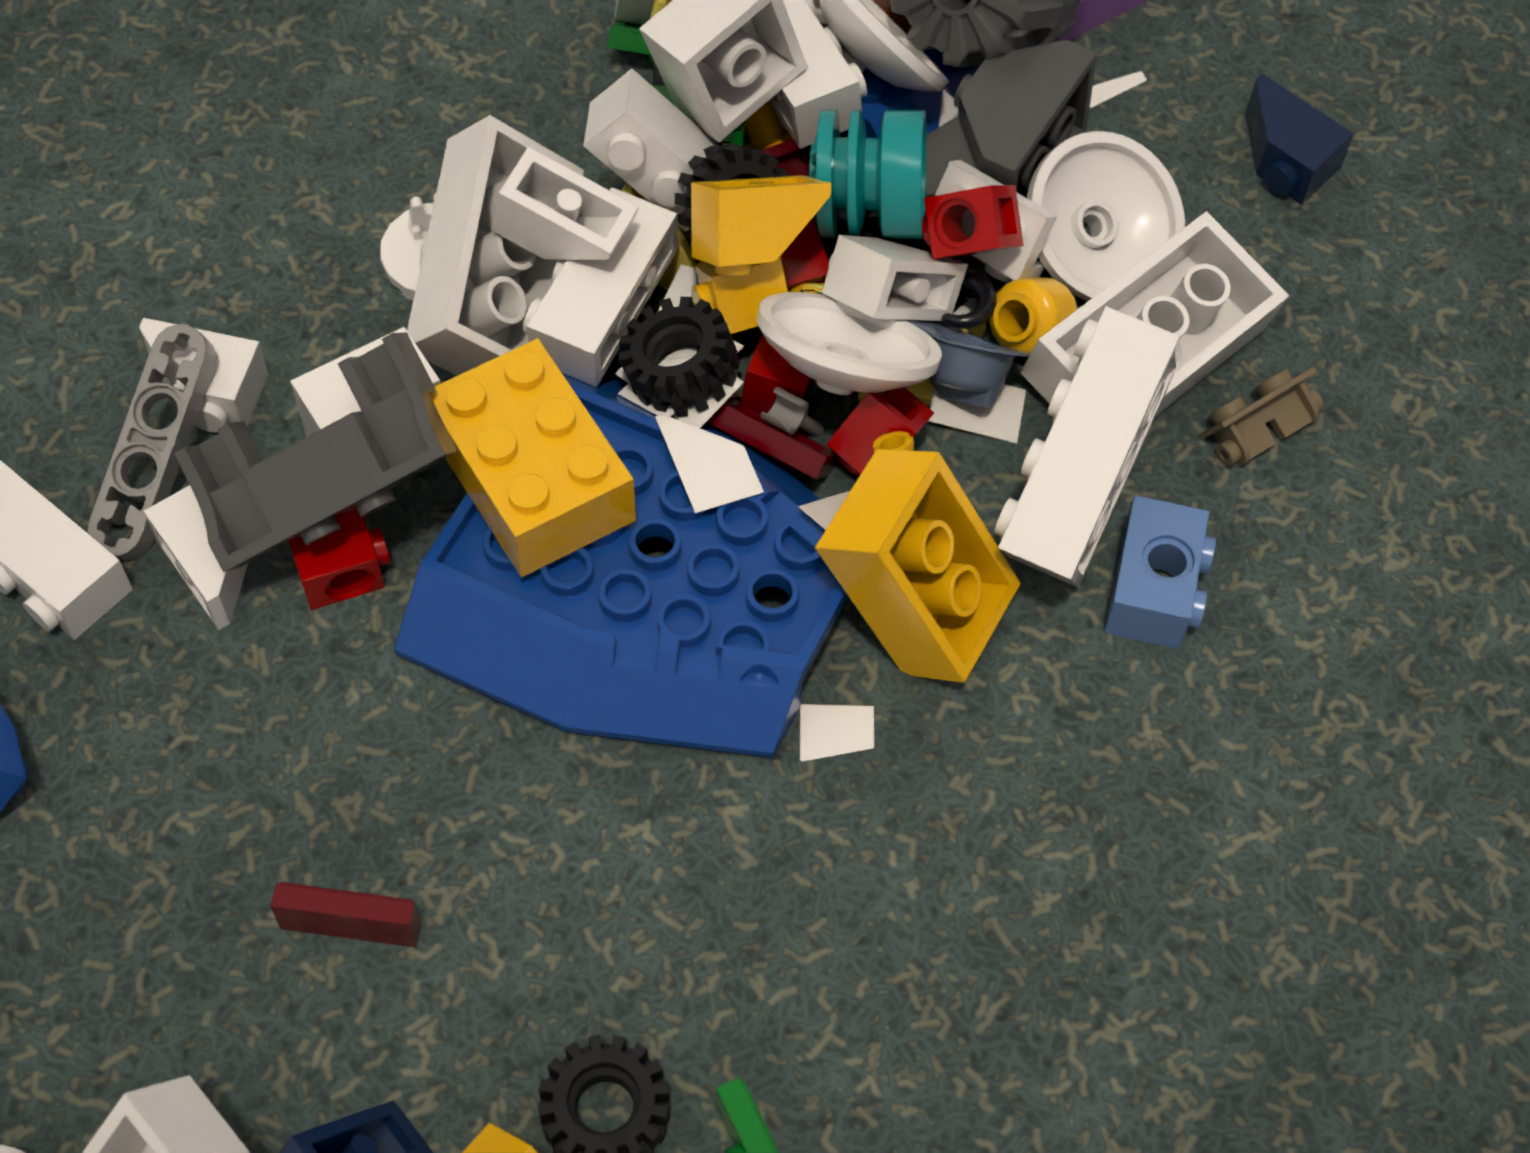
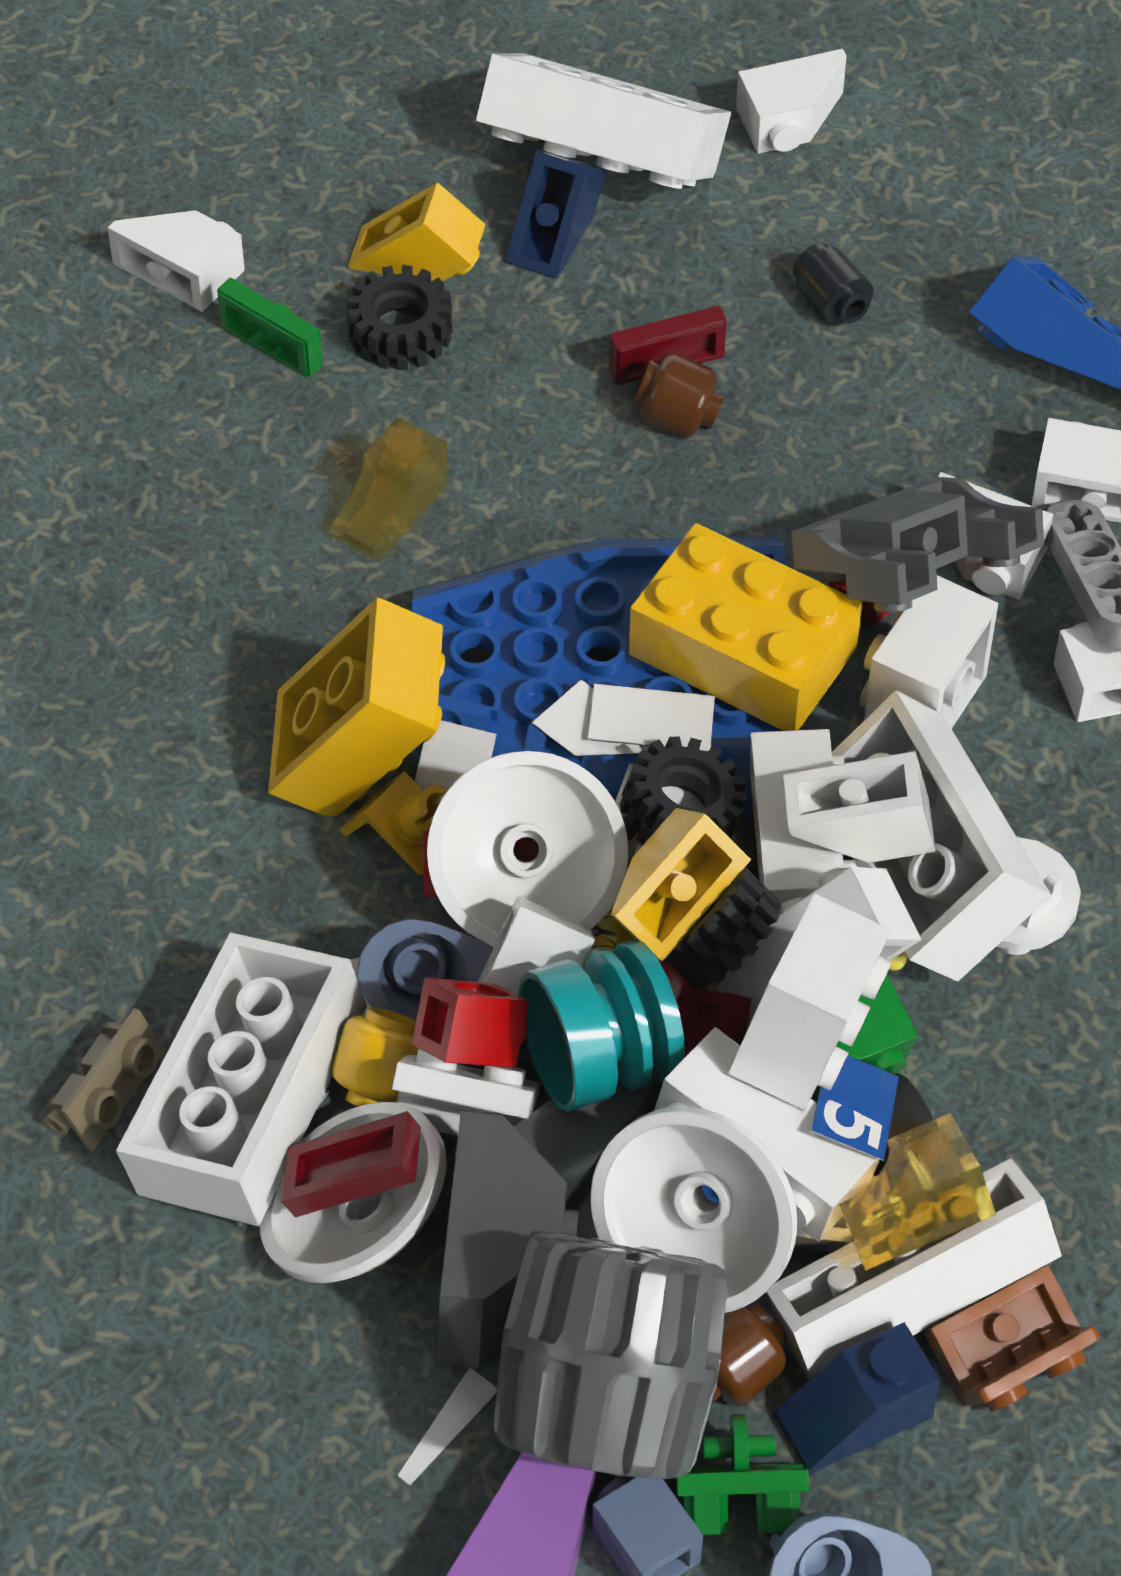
camera: 155 degrees right, 5 degrees down
(119, 916) = (832, 284): none -> black brick
(380, 845) = (678, 395): none -> reddish brown head
(660, 446) = (650, 715): none -> white sticker
(736, 869) = (395, 487): none -> clear yellow arch
(1091, 445) = (248, 857): white brick -> none
(1103, 217) = (351, 1164): none -> dark red tile
(1148, 604) = (151, 895): medium blue brick -> none
(1292, 141) = (186, 1424): dark blue slope -> none

